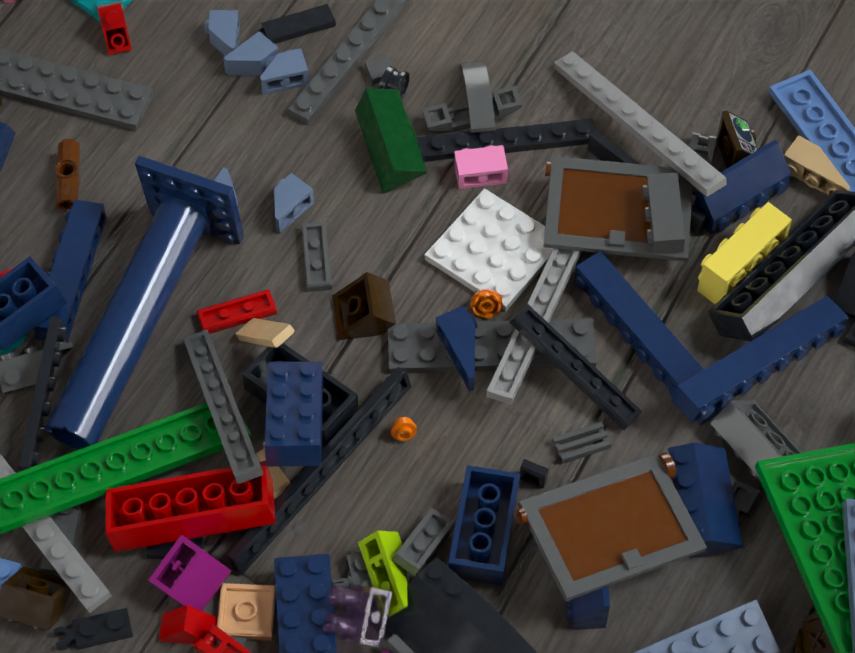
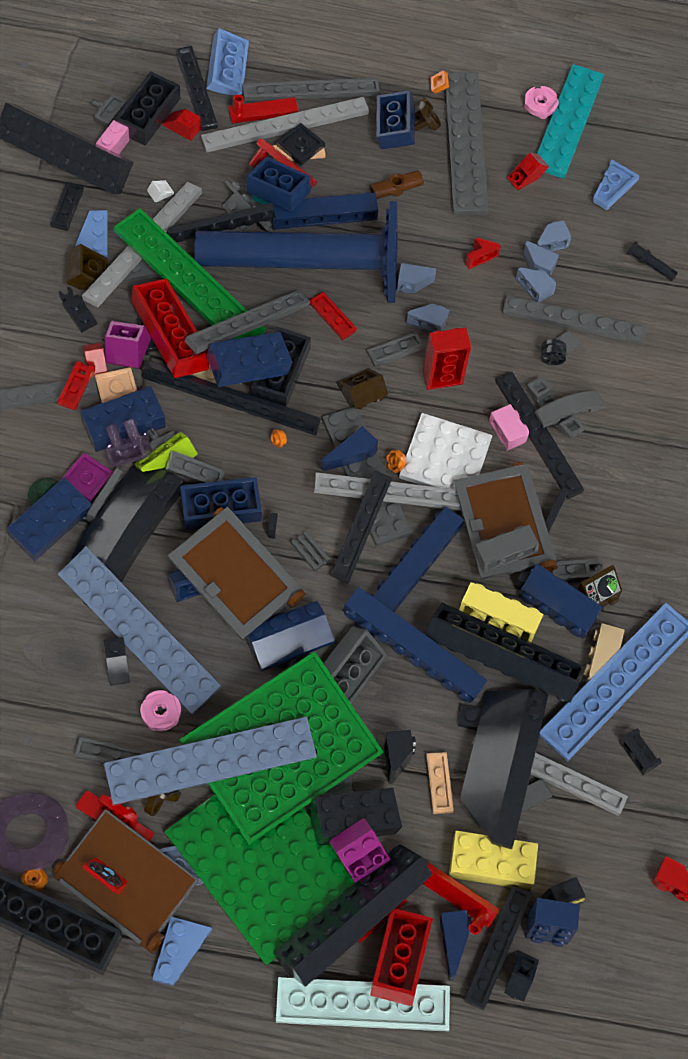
camera: 65 degrees right, 5 degrees up
(212, 112) = (483, 252): none -> red slope
(265, 332) = (314, 331): tan tile -> none
(299, 24) = (584, 281): black tile -> none
(374, 189) = (446, 358): none -> red brick
(389, 138) = (506, 363): dark green slope -> none
(641, 124) = (583, 516): light grey plate -> none

